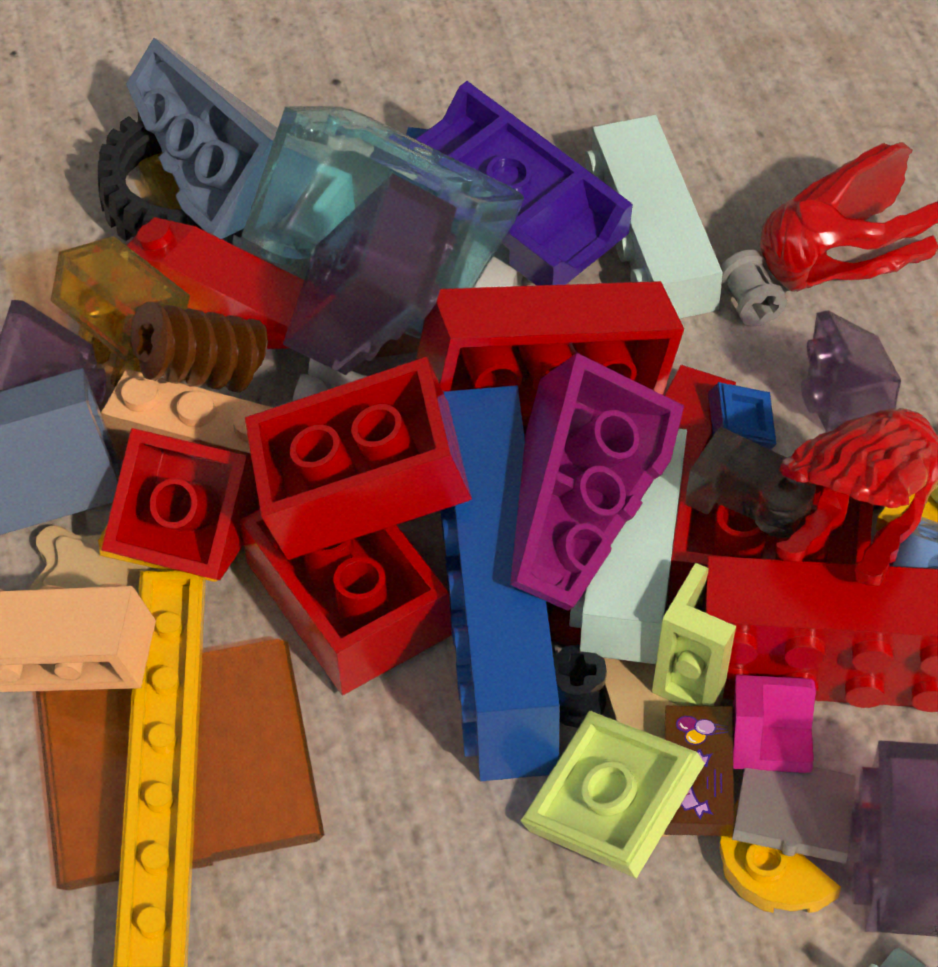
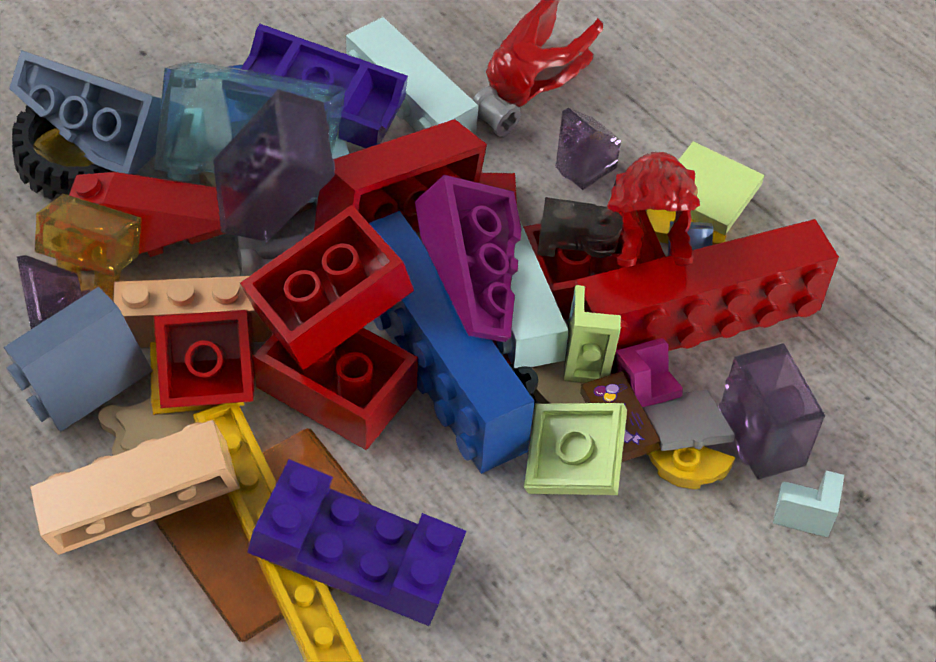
camera: 30 degrees left, 0 degrees up
(197, 346) = (164, 250): reddish brown piece -> none
(250, 814) = (356, 544): none -> dark purple piece
(743, 412) = (529, 192): blue tile -> none

